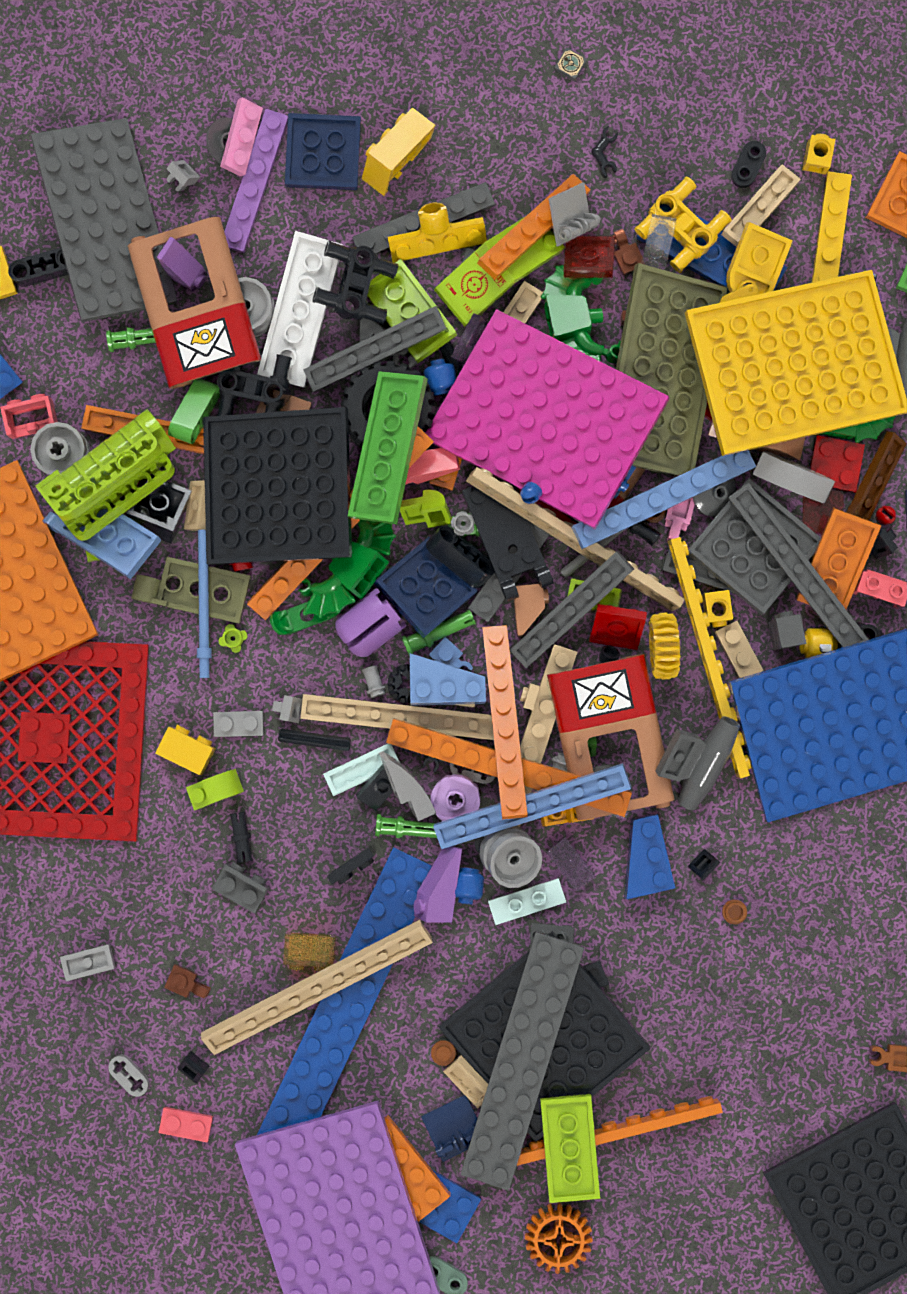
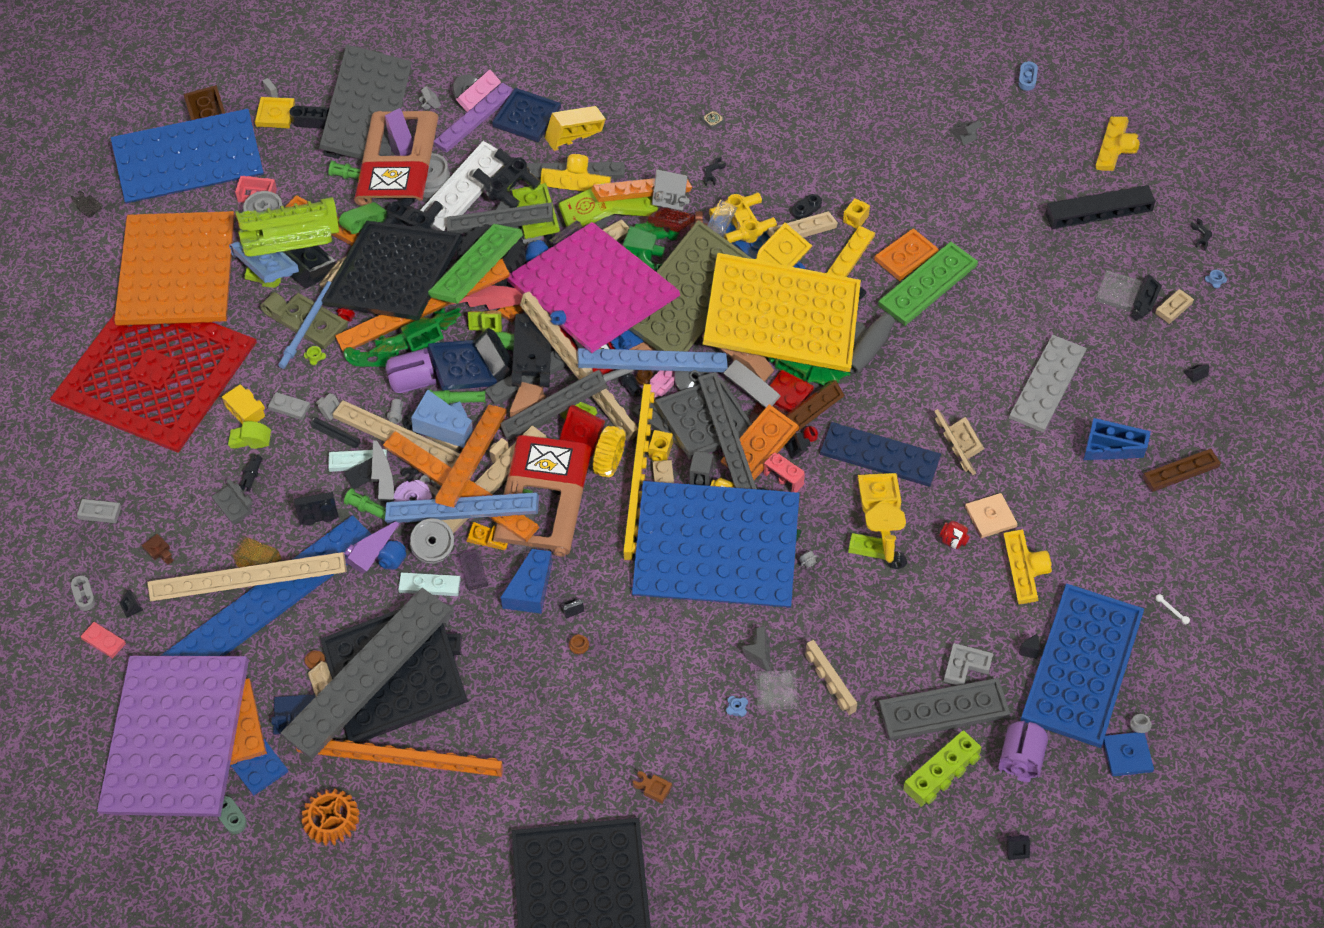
camera: 20 degrees right, 30 degrees down
(463, 517) = (506, 332): light grey plate -> none
(570, 1148) = (371, 745): lime plate -> none
(698, 760) = (597, 526): dark grey plate -> none

